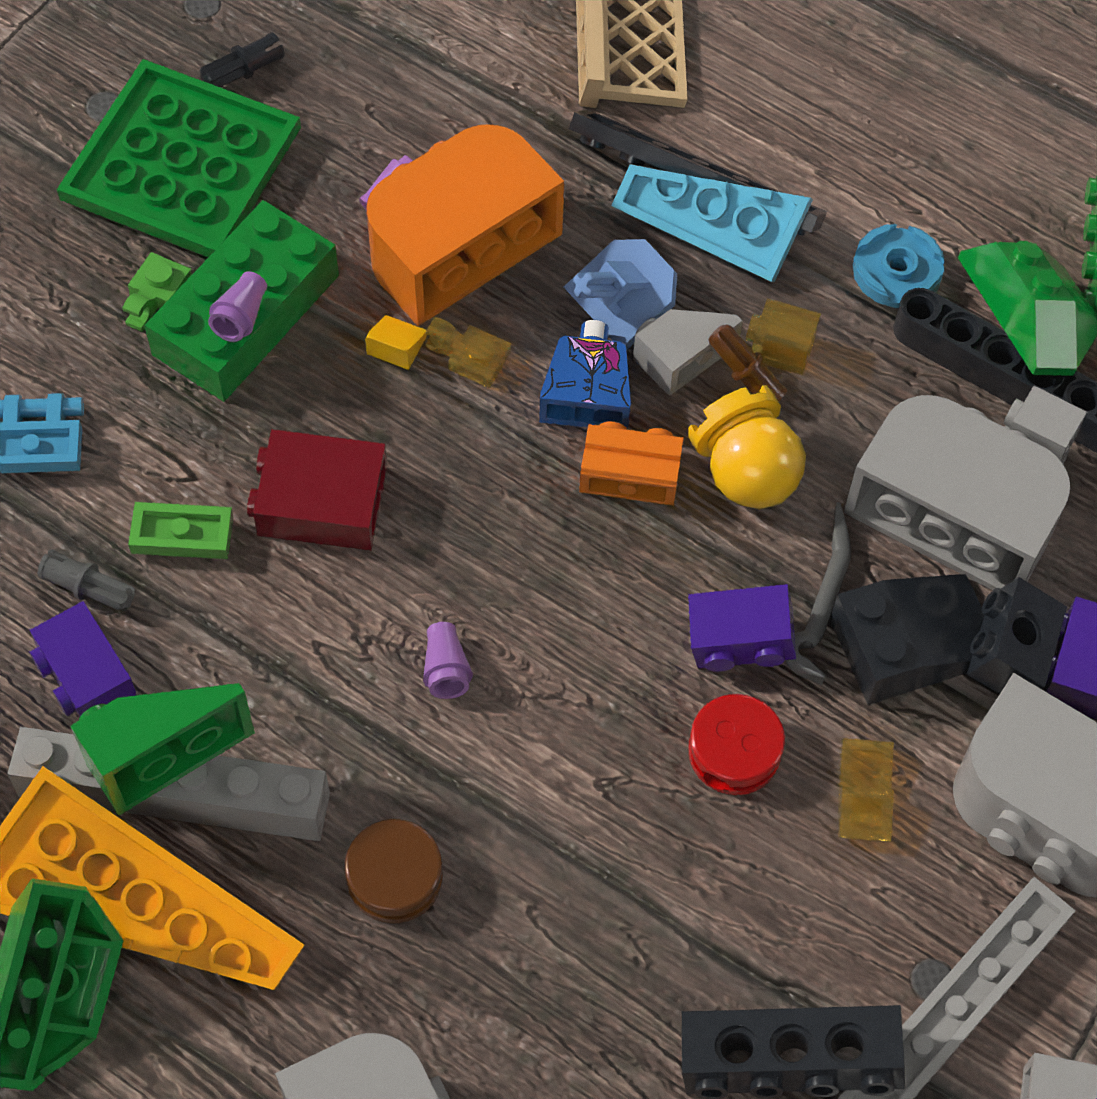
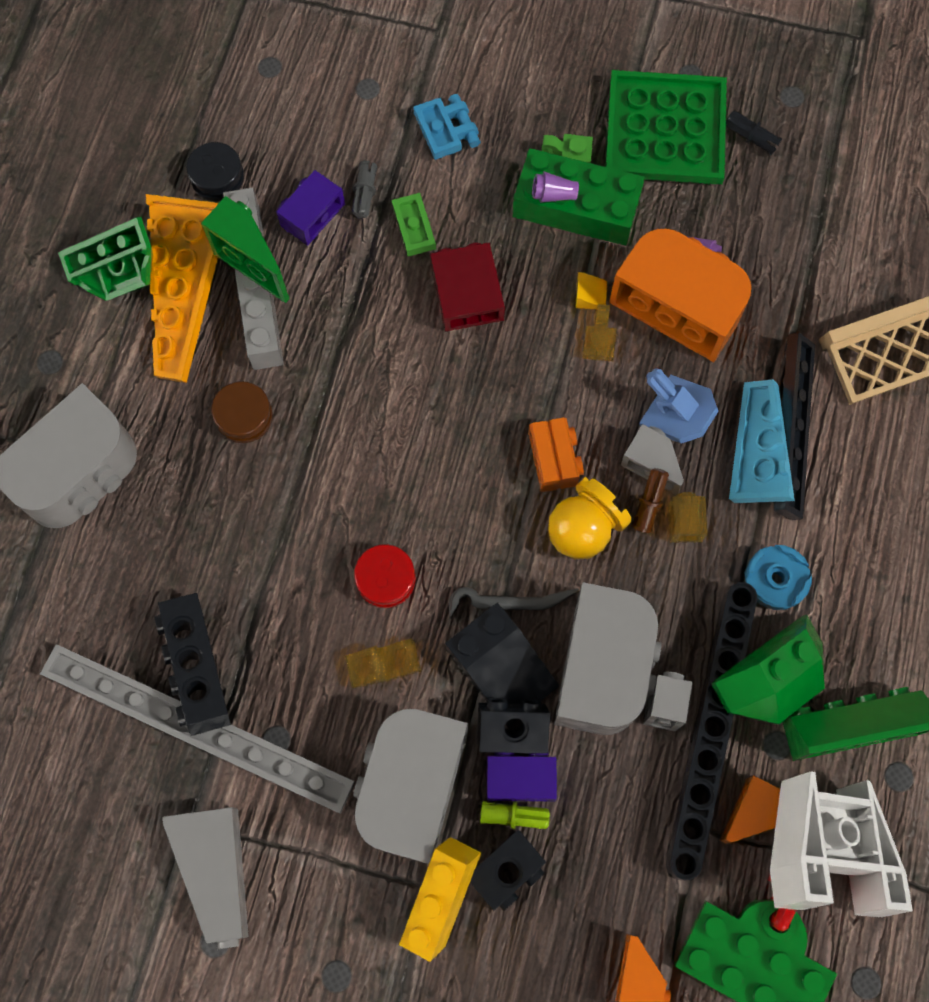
camera: 75 degrees right, 10 degrees up
(446, 666) = (381, 394): medium lavender cone -> none
(587, 380) = (604, 409): blue torso -> none
(742, 627) = (461, 554): dark purple brick -> none

